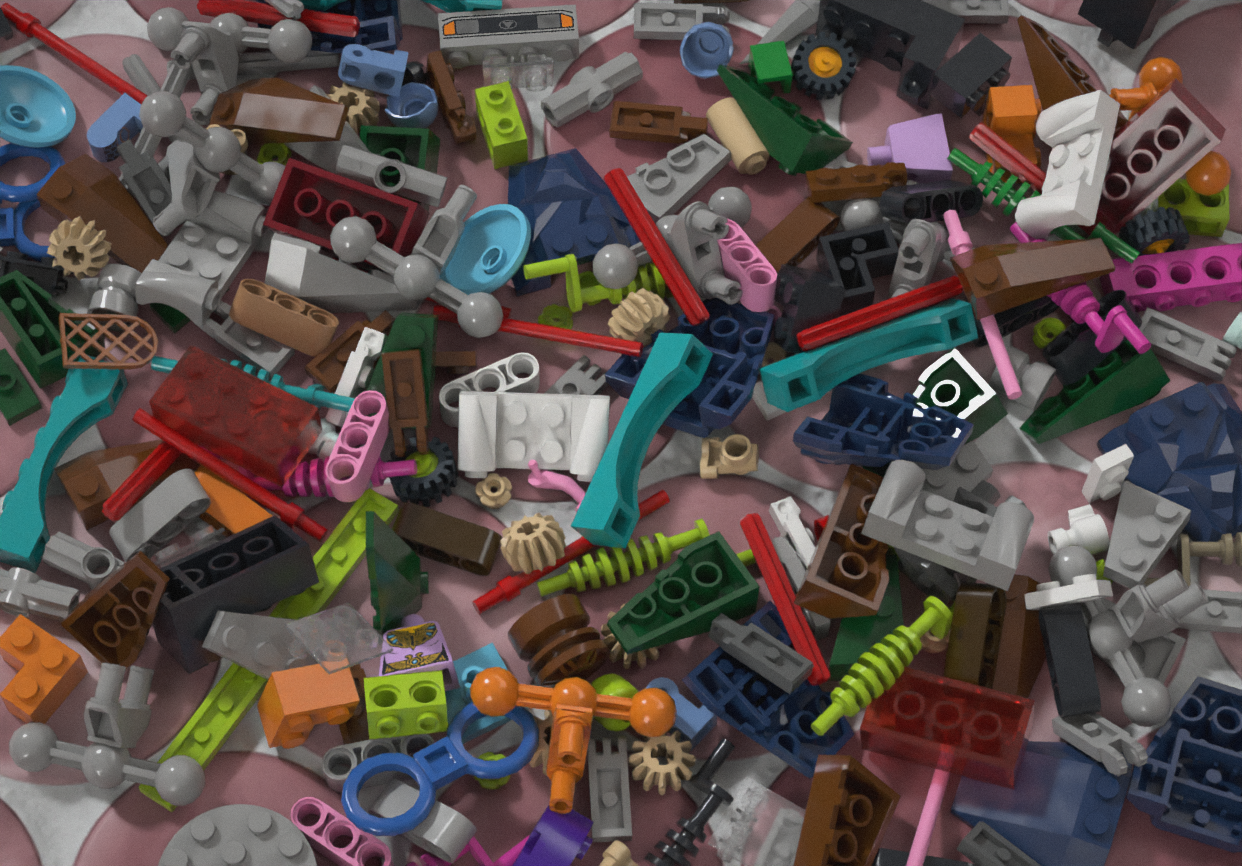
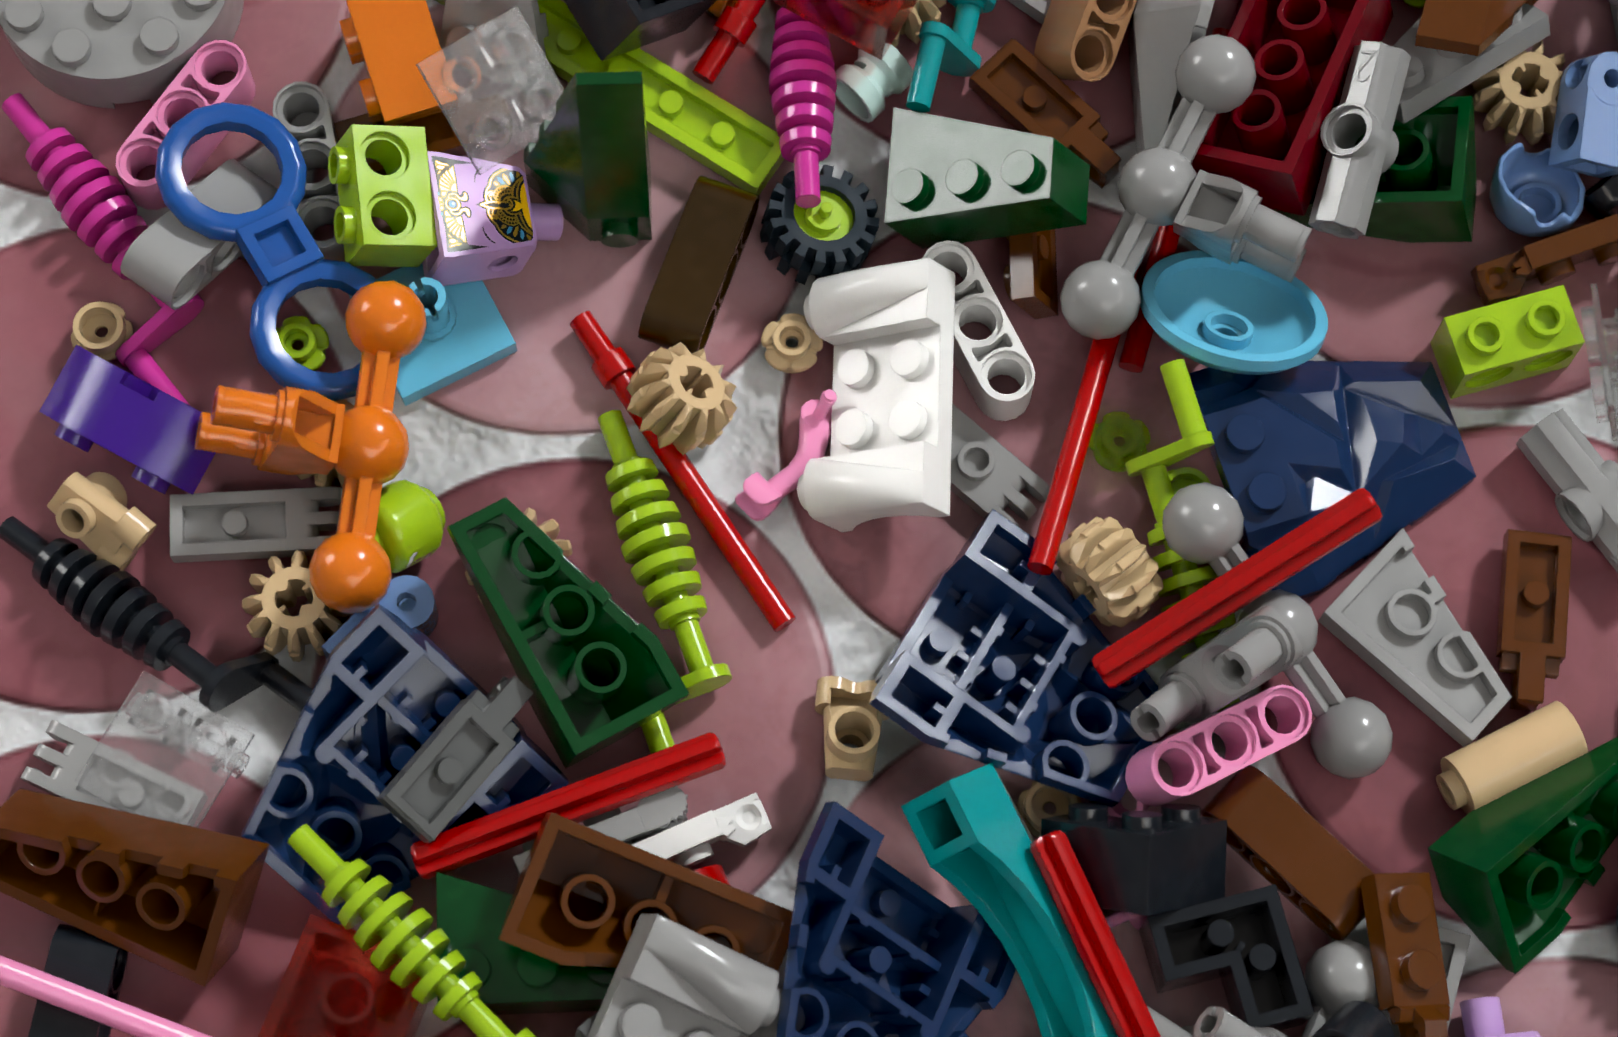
camera: 90 degrees right, 10 degrees up
(358, 371) = (986, 105): white hinge -> none
(358, 461) = (807, 75): bright pink beam -> none
(406, 398) = (913, 170): reddish brown hinge -> none
(558, 641) = (490, 433): reddish brown wheel -> none
(611, 501) = (971, 604): teal arch -> none

